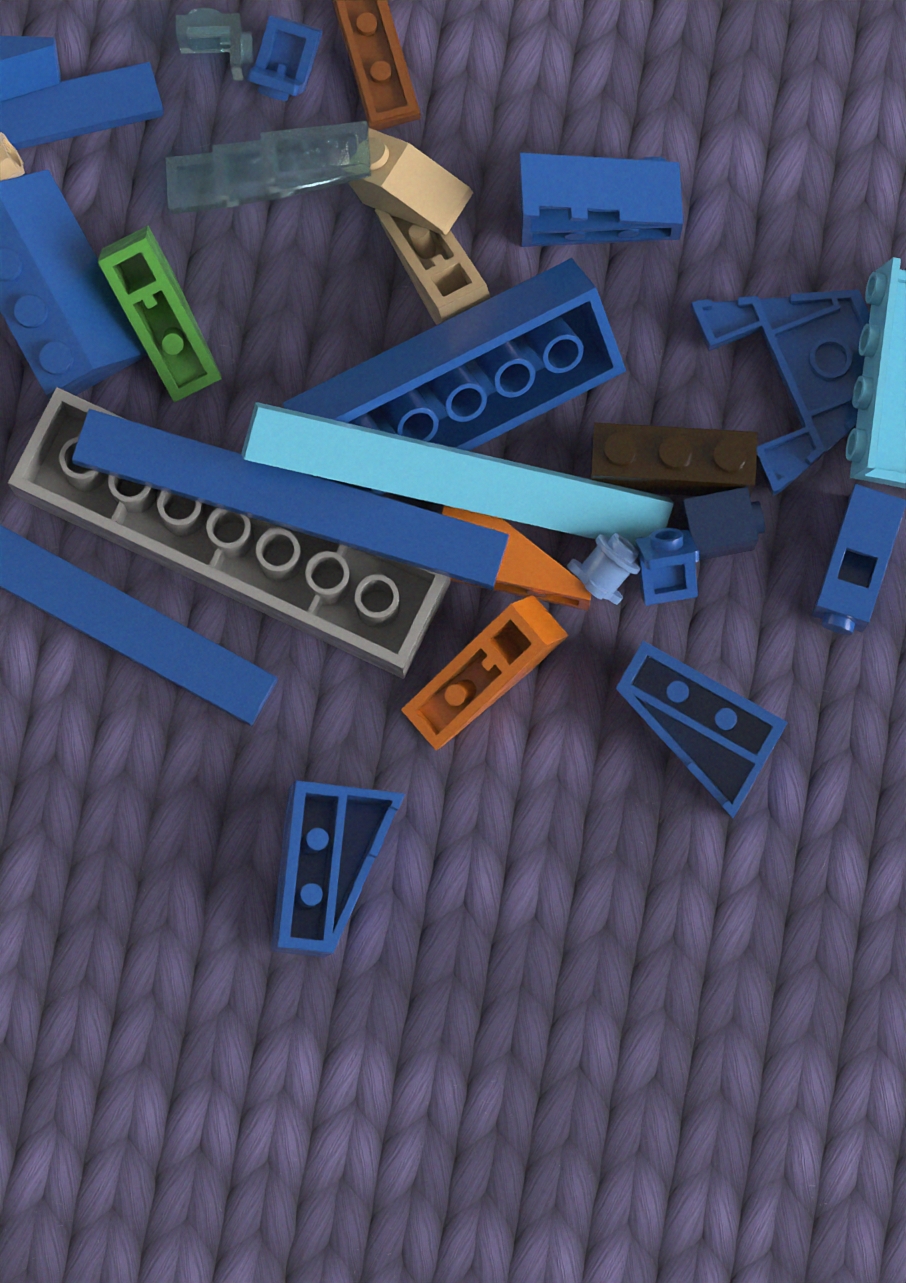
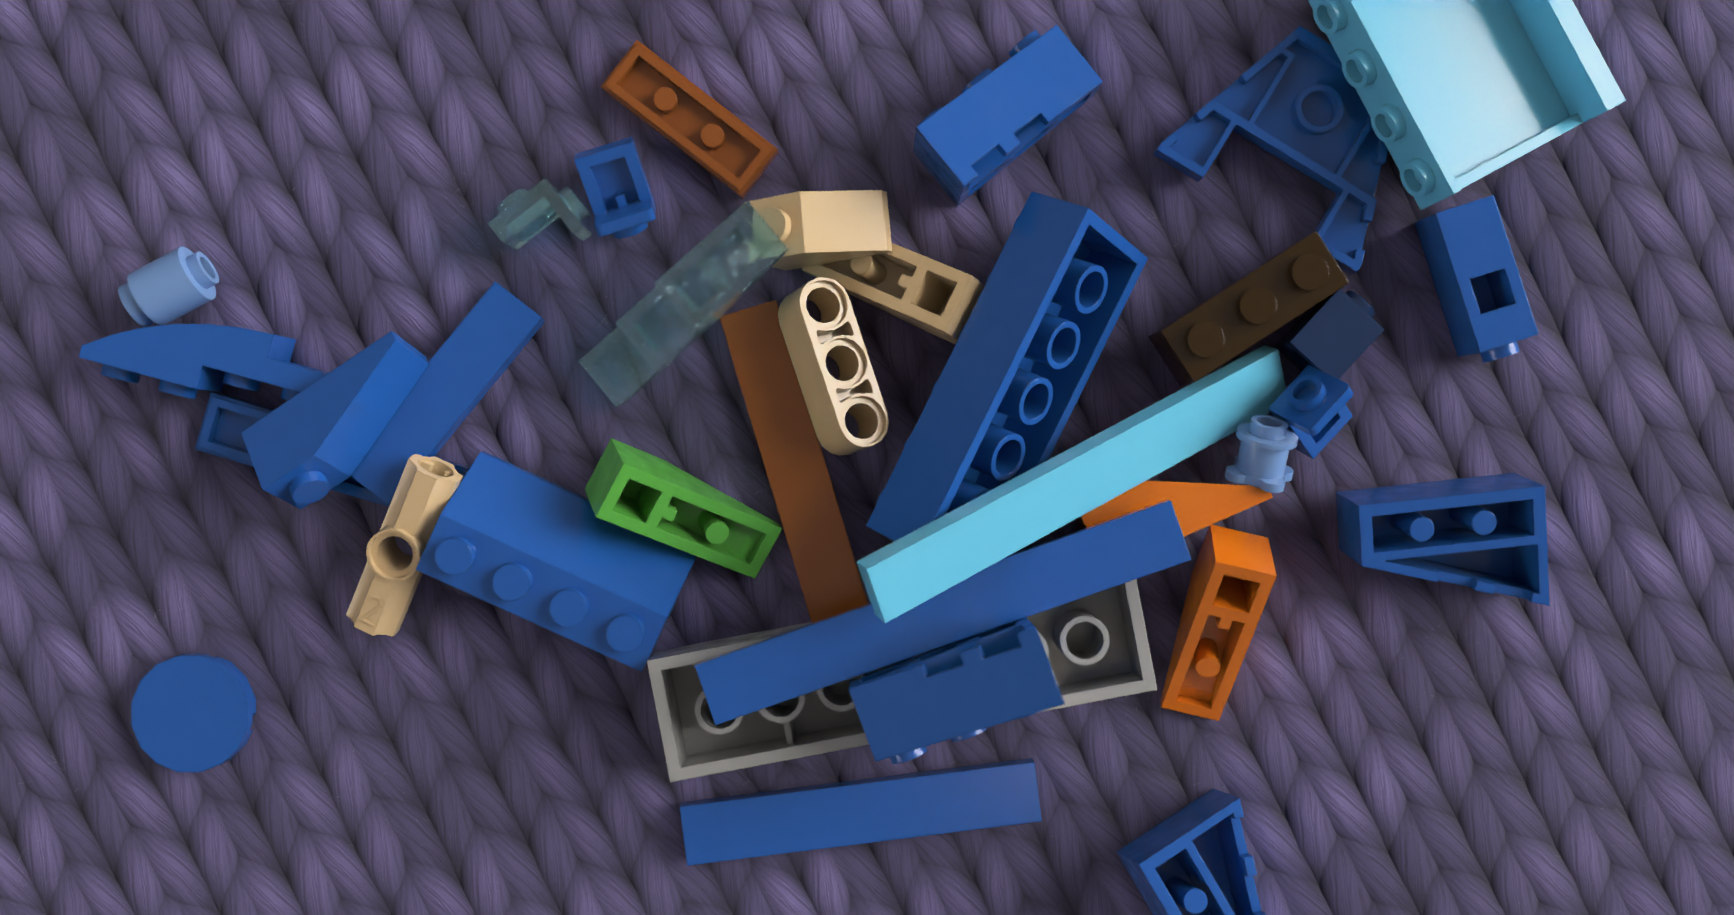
camera: 35 degrees left, 10 degrees up
(256, 551) = (955, 691): none -> blue wedge
(271, 323) = (793, 462): none -> dark orange tile
(362, 274) = (842, 340): none -> tan beam

